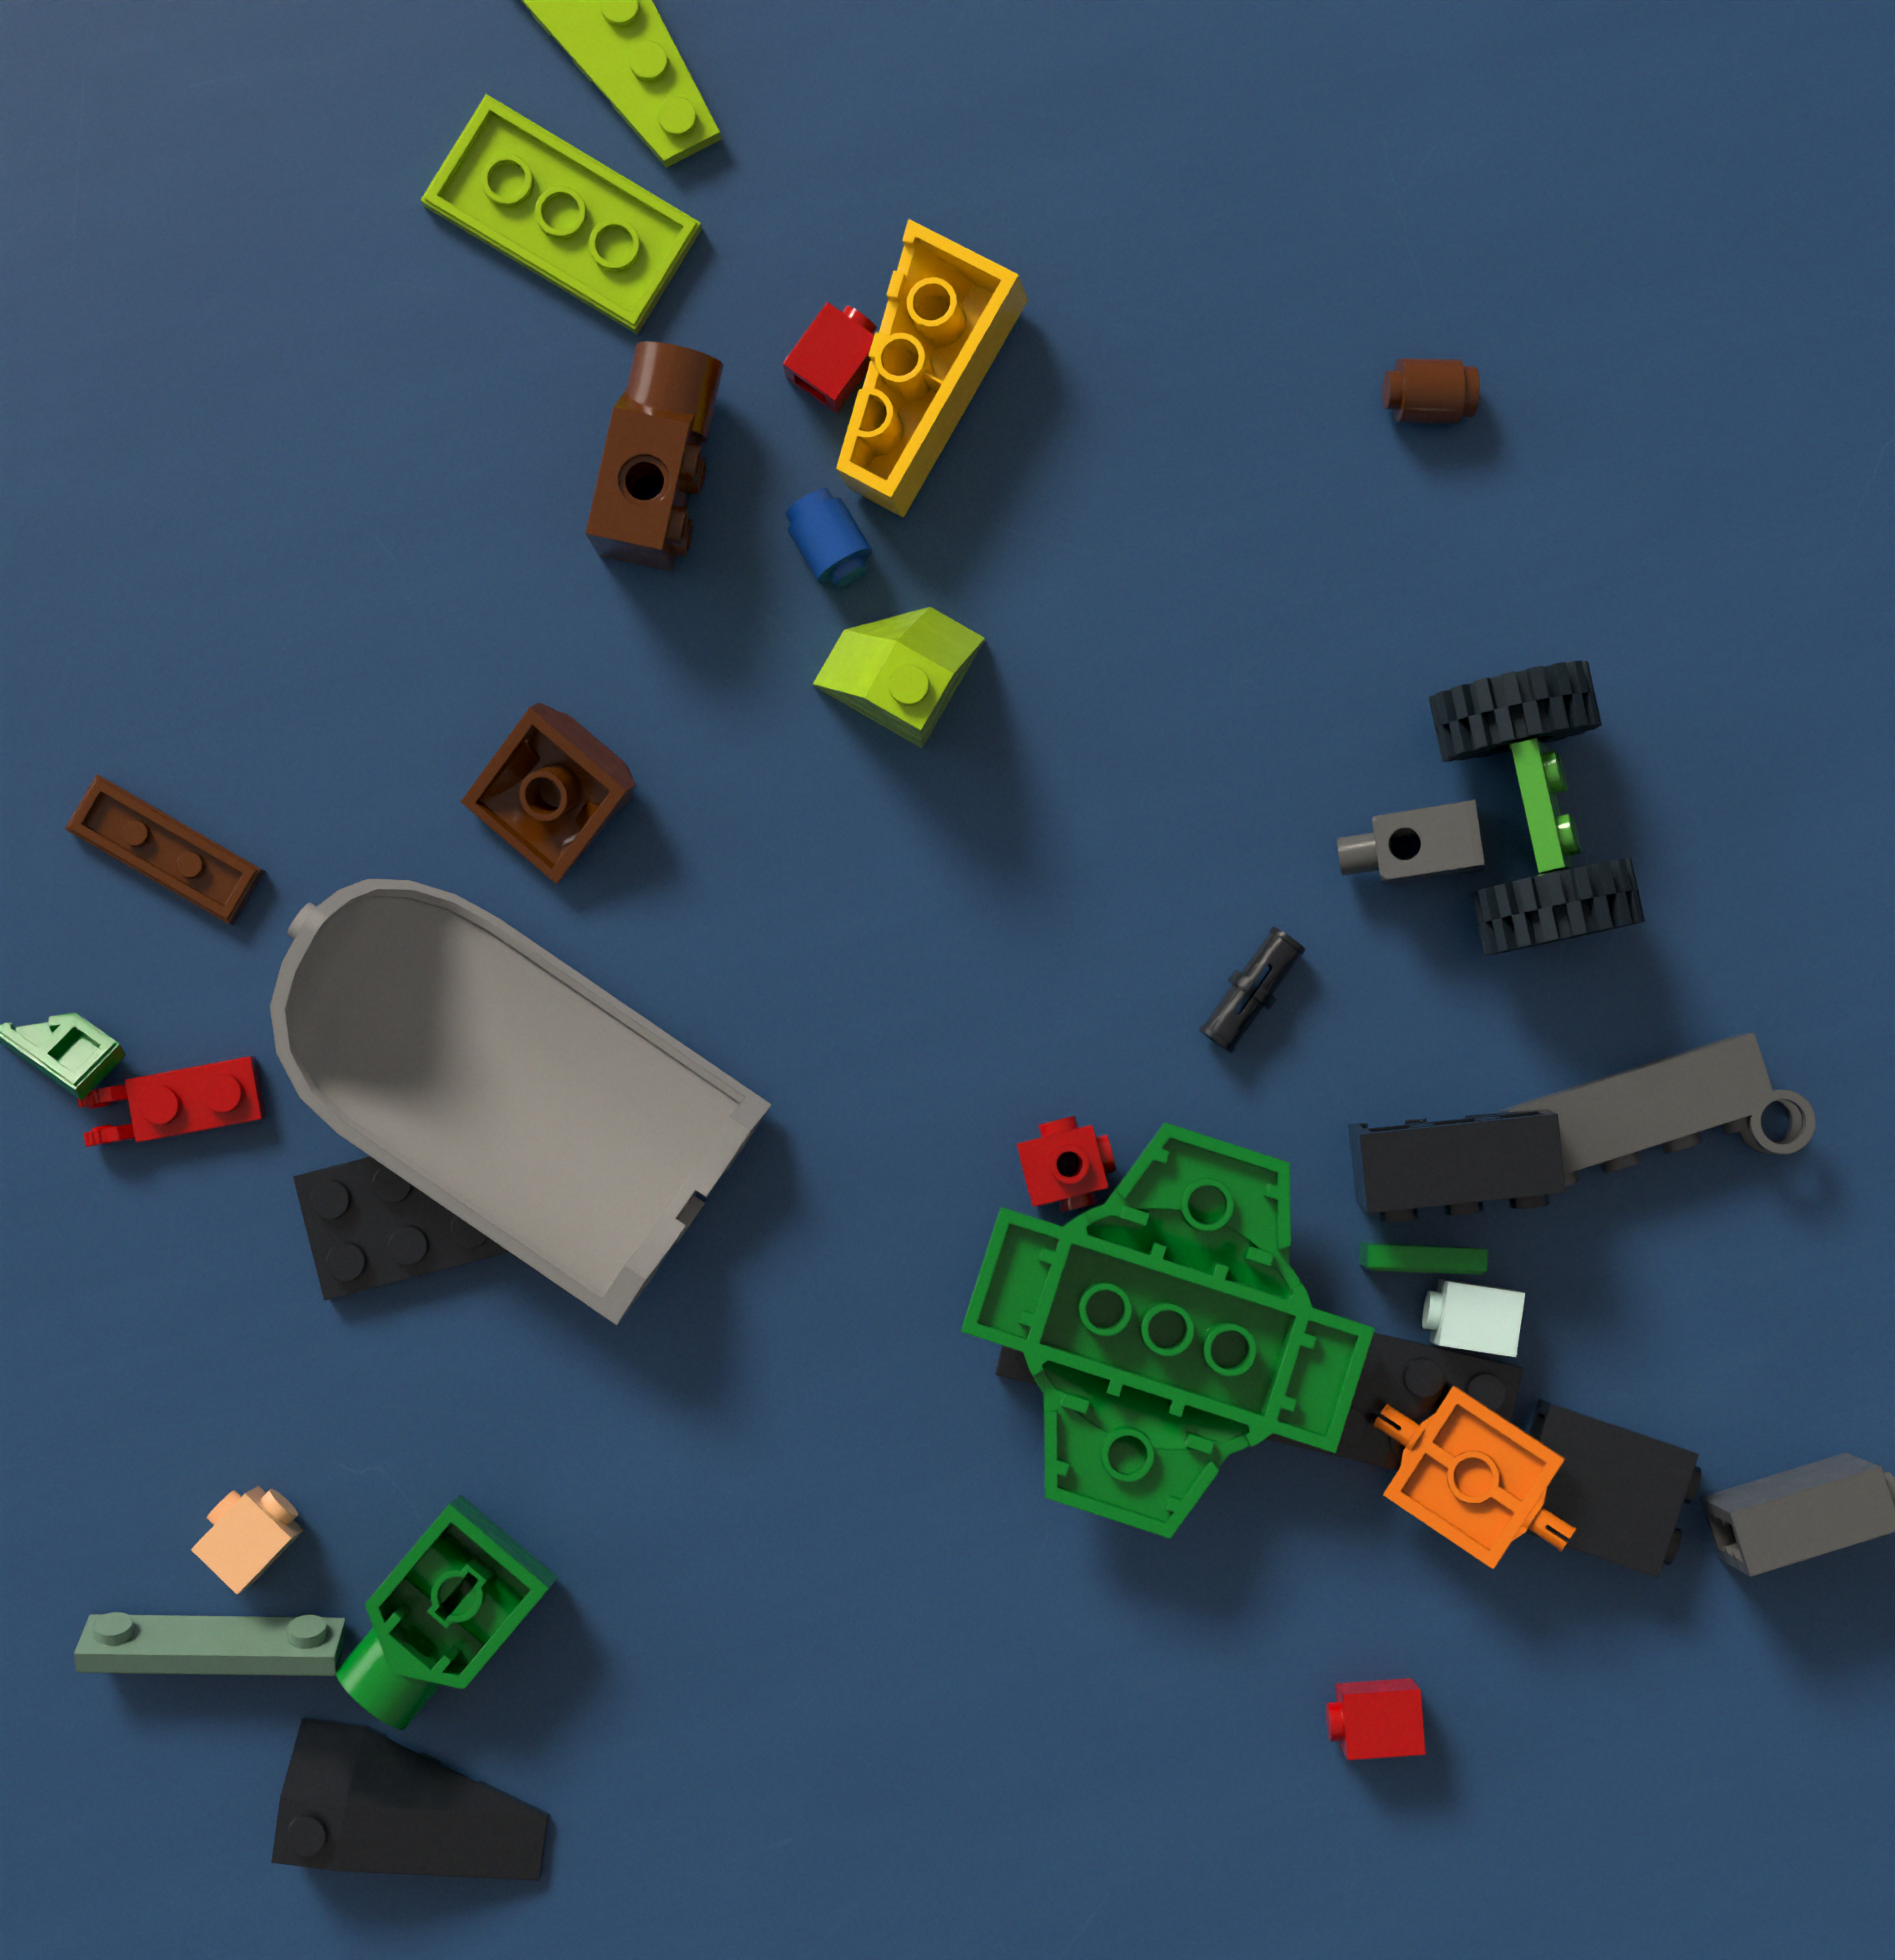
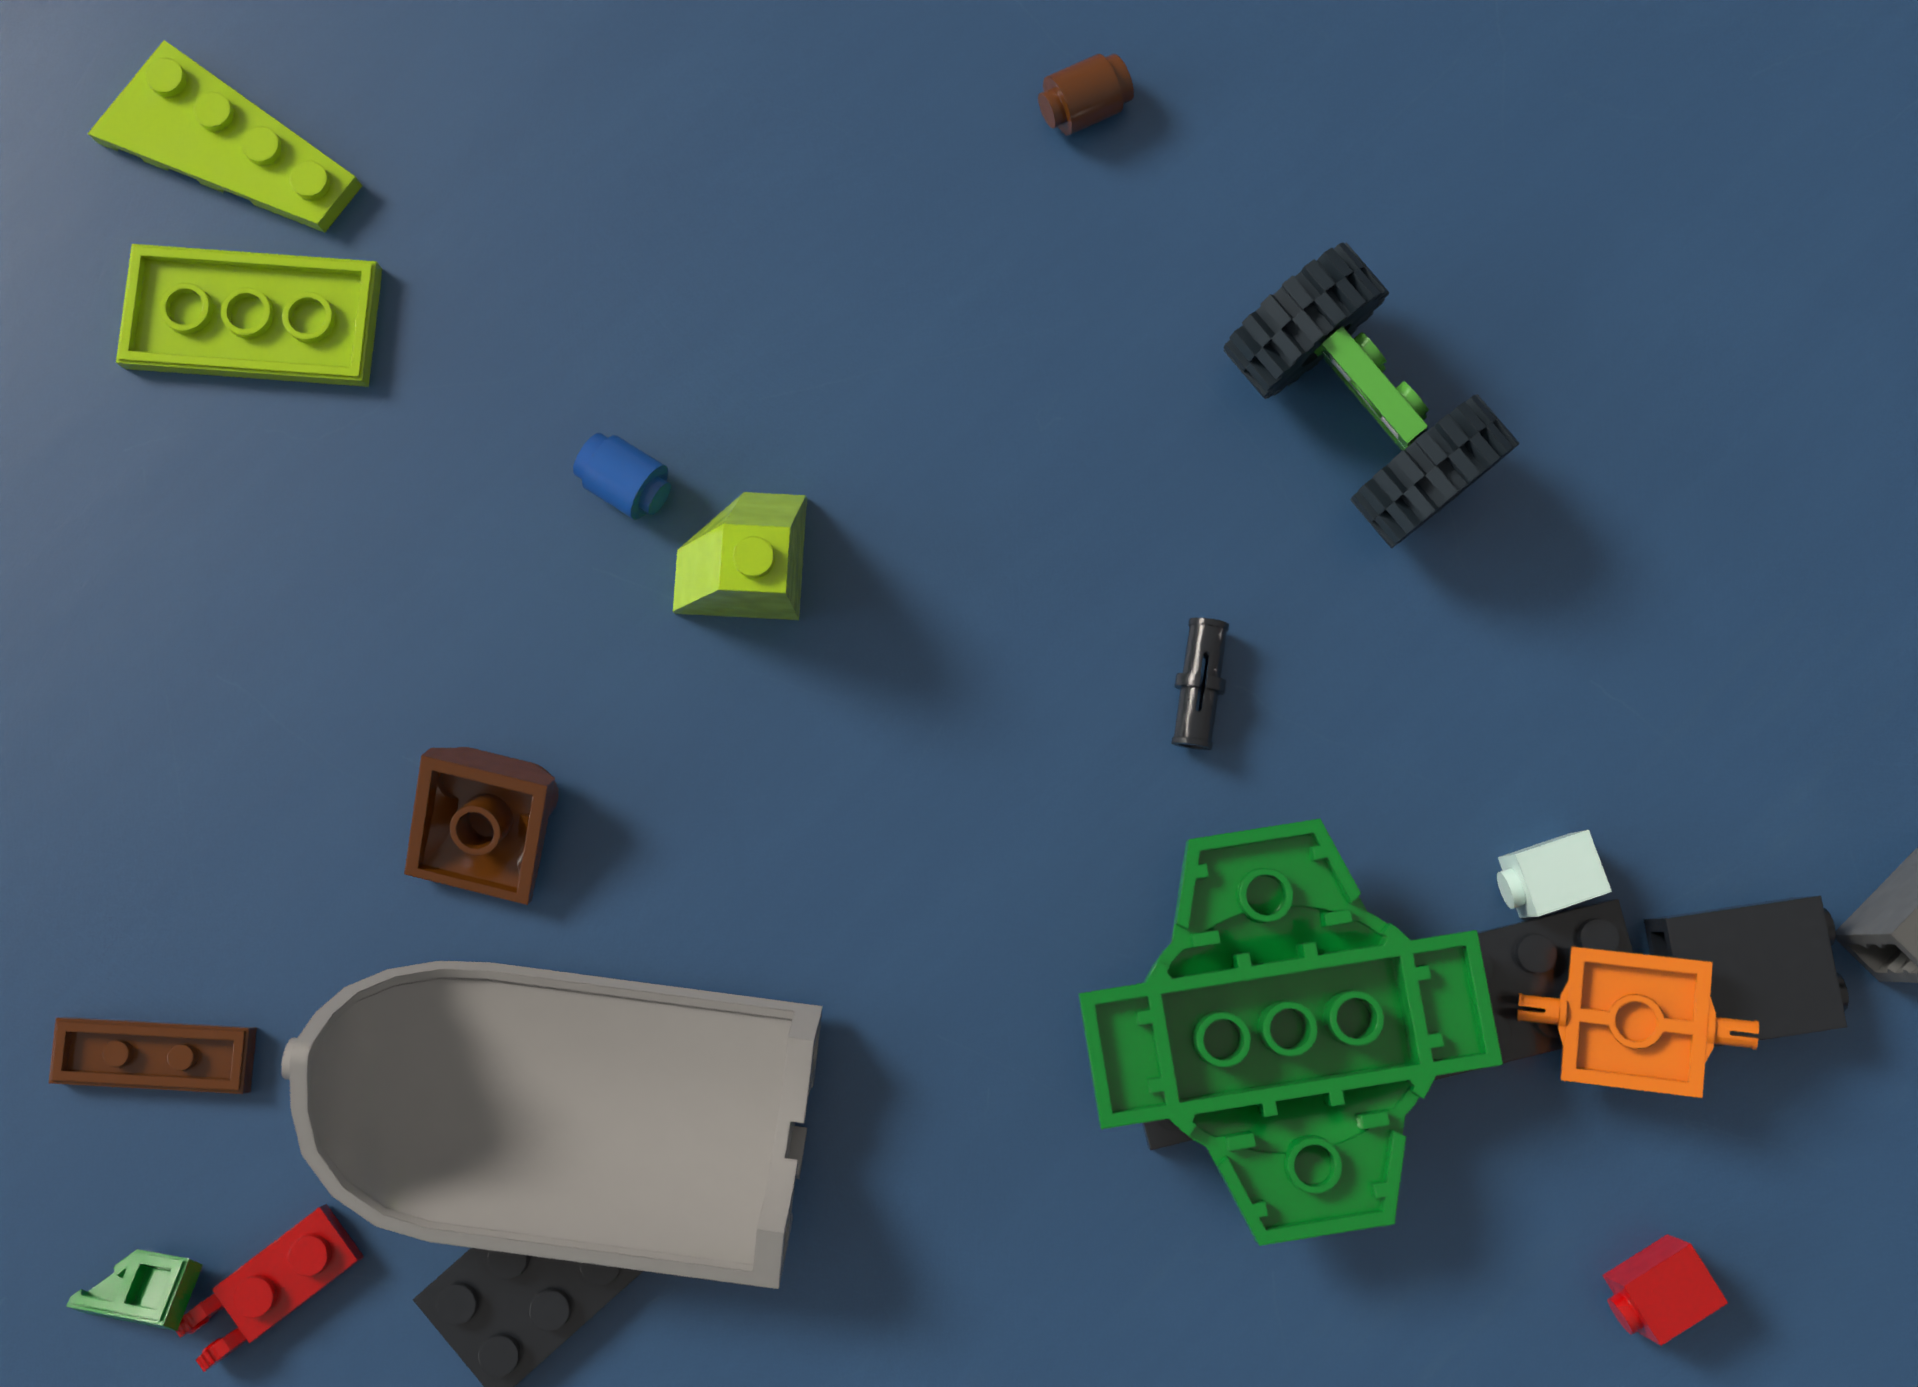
camera: 25 degrees left, 5 degrees down
(654, 442) = (427, 480): reddish brown brick -> none
(832, 355) = (548, 316): red brick -> none
(931, 353) = (633, 274): yellow wedge -> none
(1040, 1170) = (1091, 931): red brick -> none
(1423, 1258) = (1478, 845): green tile -> none
(1447, 838) = (1306, 464): dark grey torso -> none
(1457, 1163) = (1469, 743): black wedge -> none
(1670, 1105) = (1605, 608): dark grey hinge -> none

